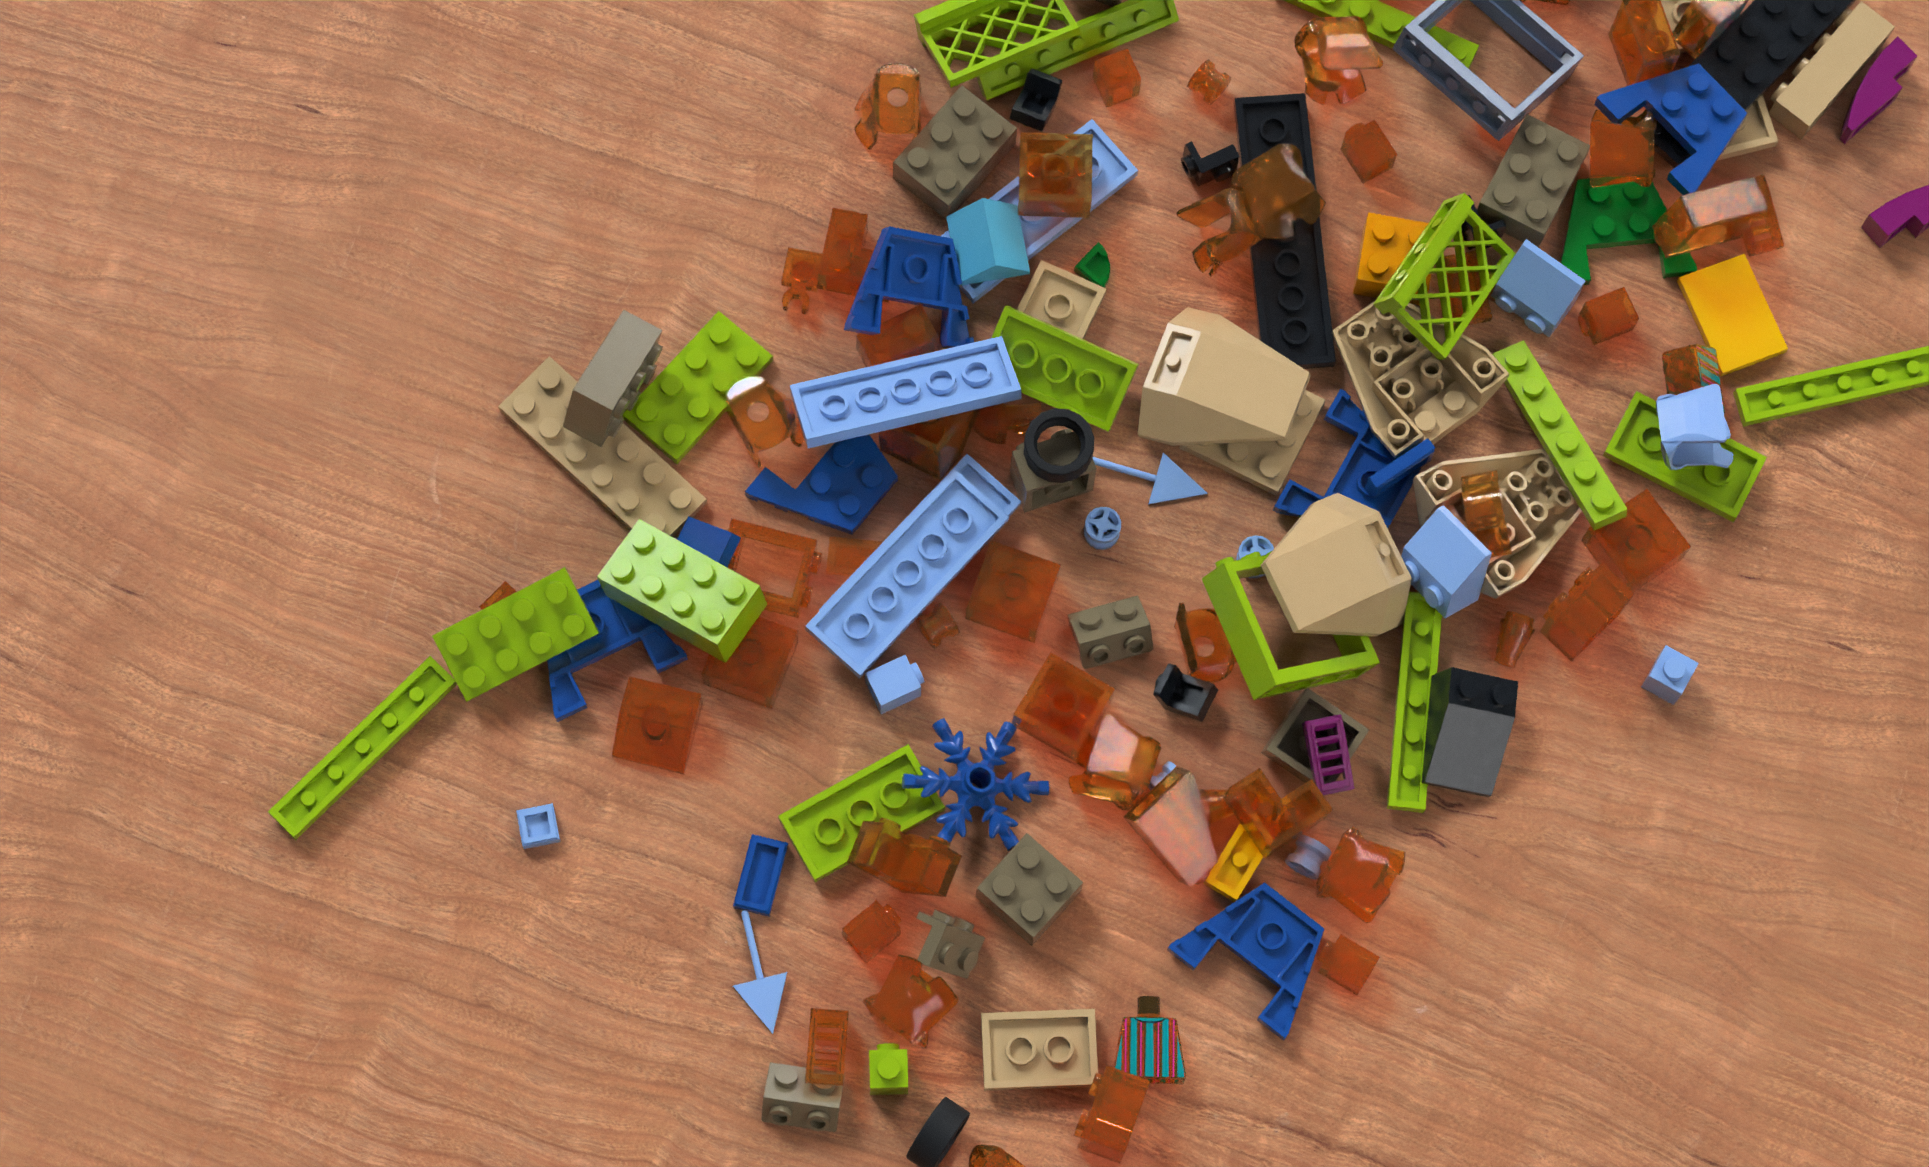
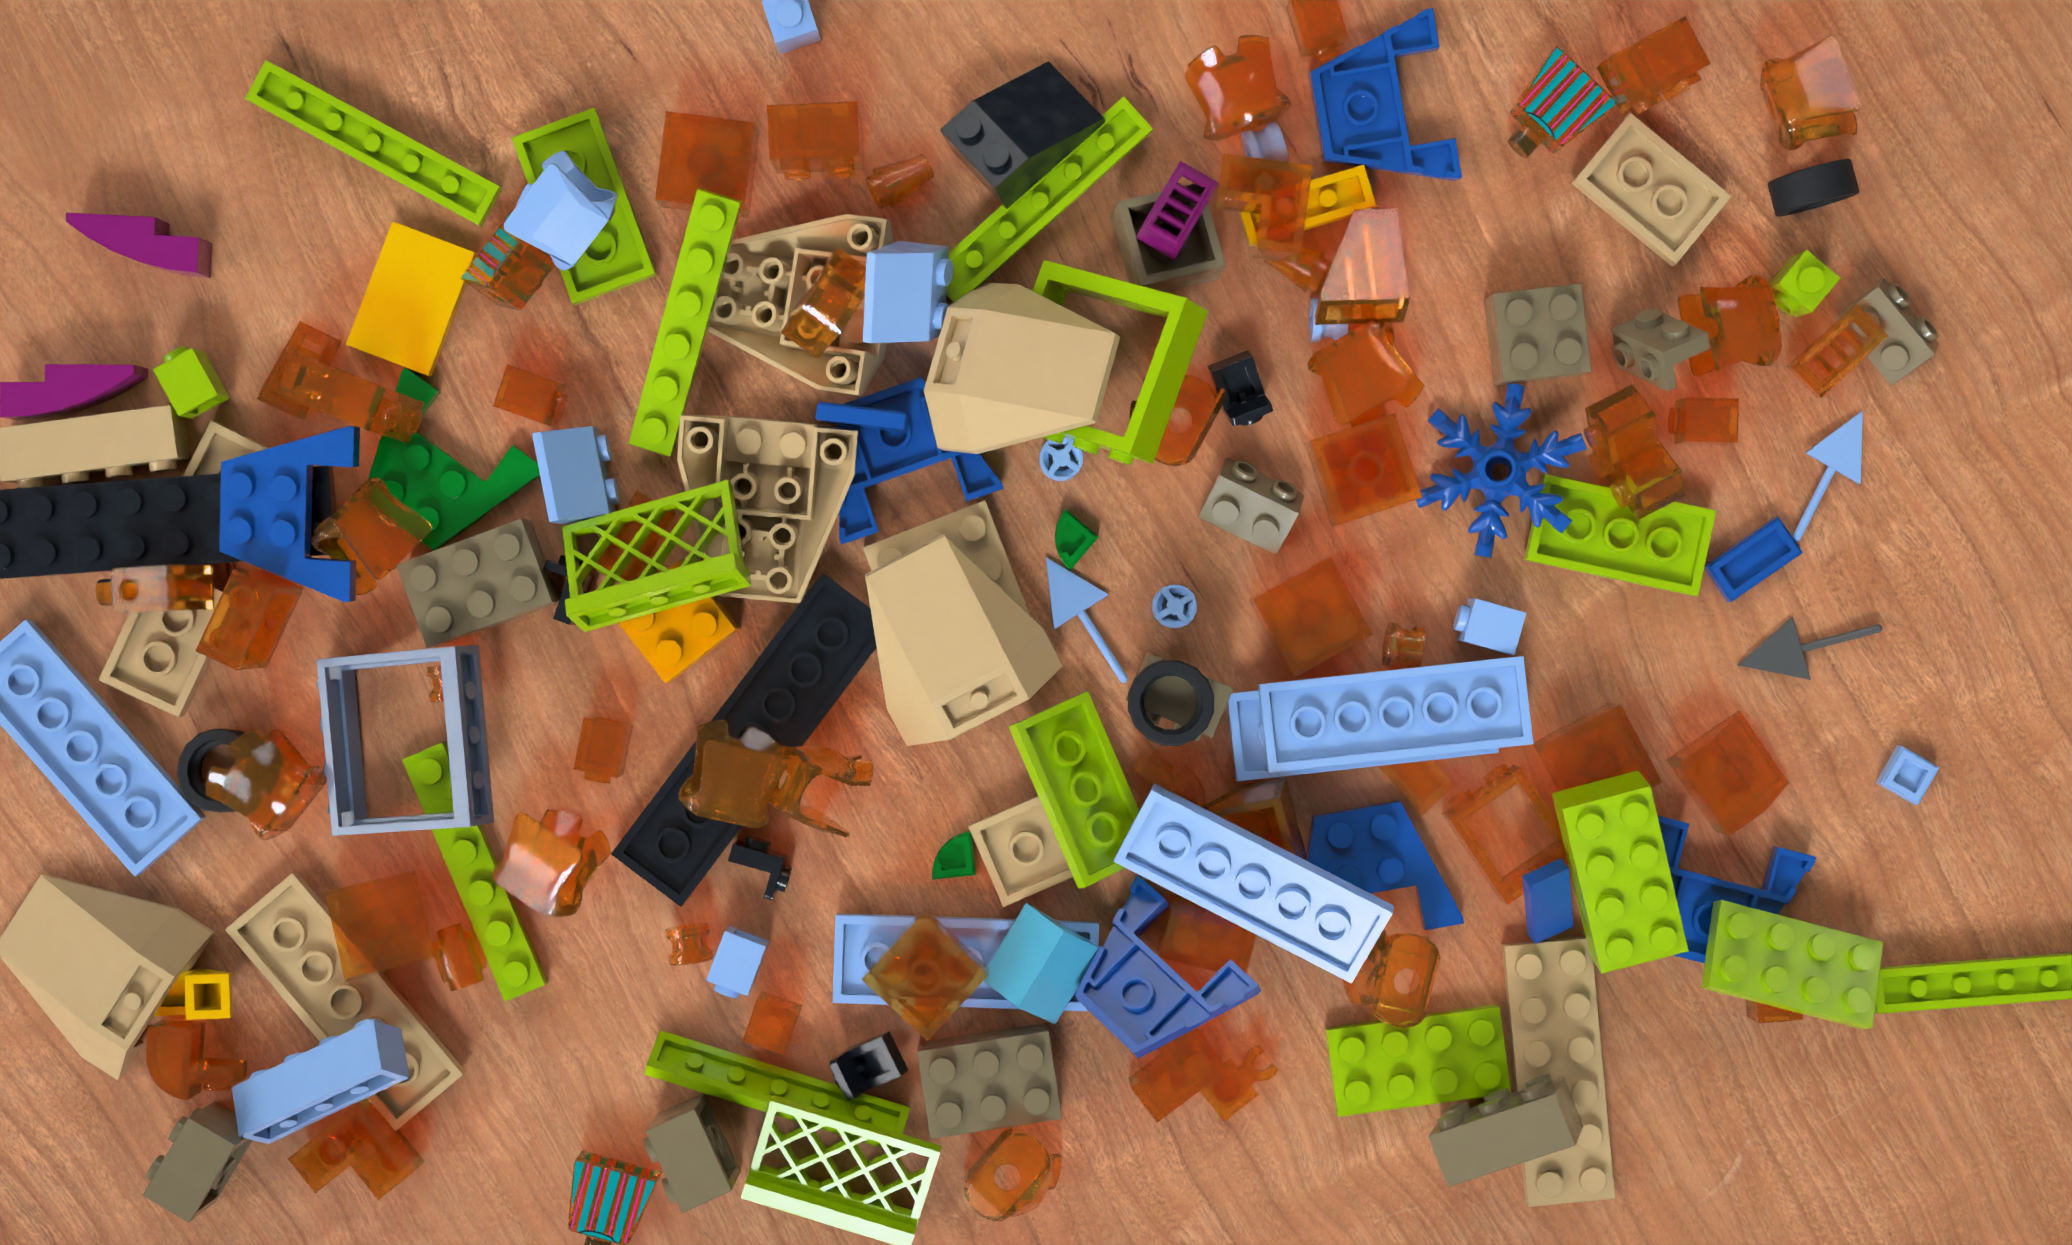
camera: 130 degrees left, 15 degrees up
(687, 835) = (1785, 655): none -> dark grey piece
(1170, 95) = (737, 962): none -> light blue brick
(1202, 517) = (1072, 539): none -> green tile
(1811, 152) = (190, 382): none -> lime brick

